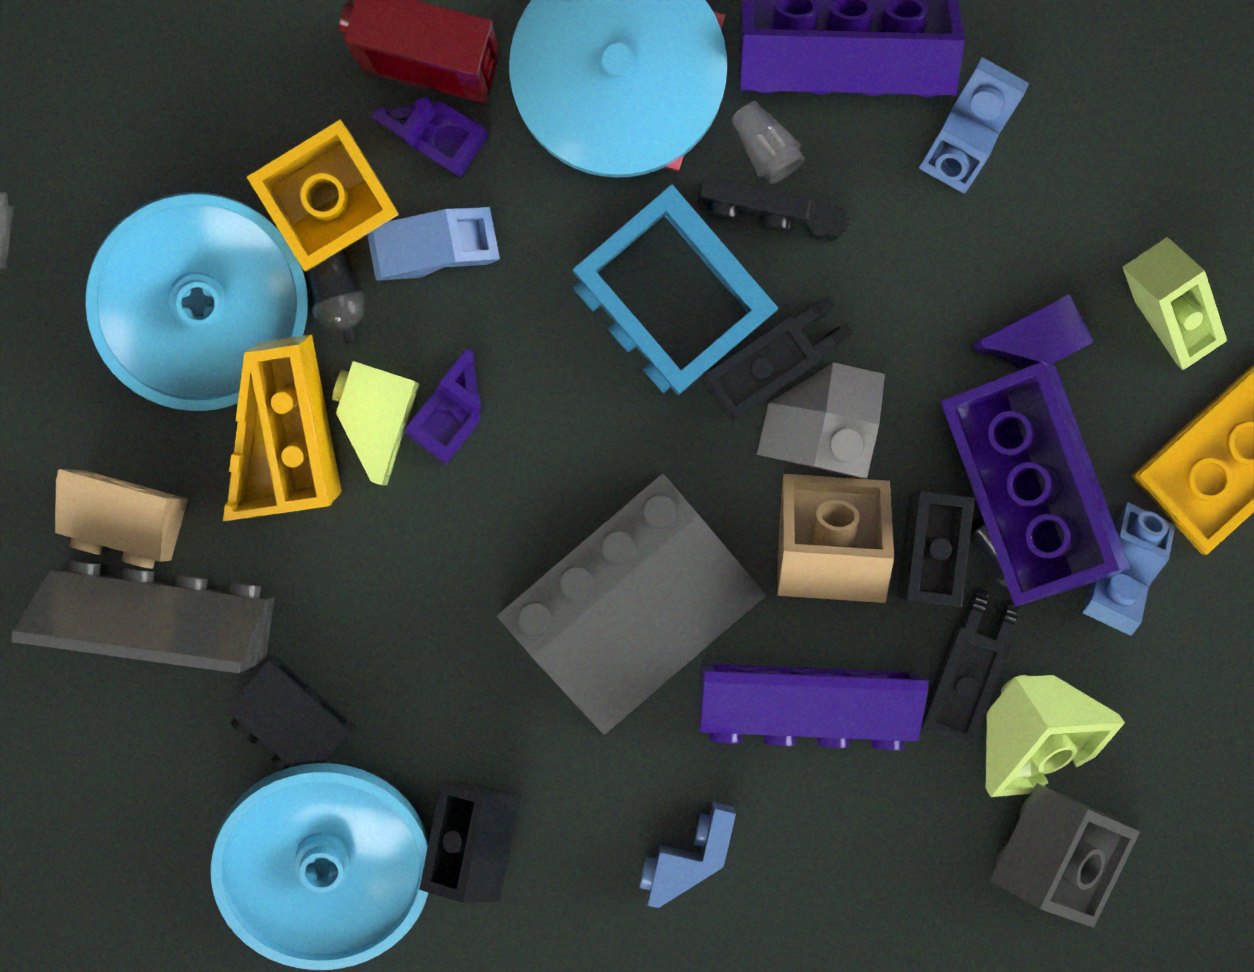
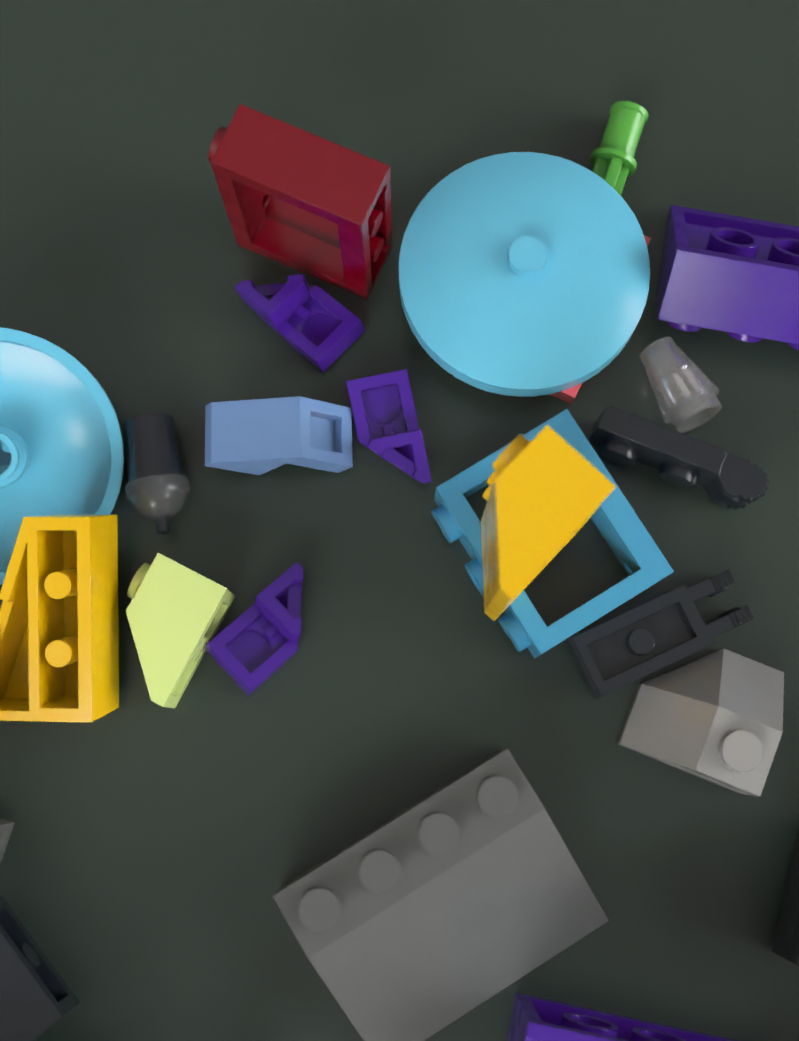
camera: 10 degrees right, 10 degrees down
(323, 195) = (159, 356): yellow slope -> none
(523, 213) = (388, 421): none -> dark purple slope
(650, 290) = (532, 510): none -> yellow slope
(835, 538) = (706, 867): tan slope -> none

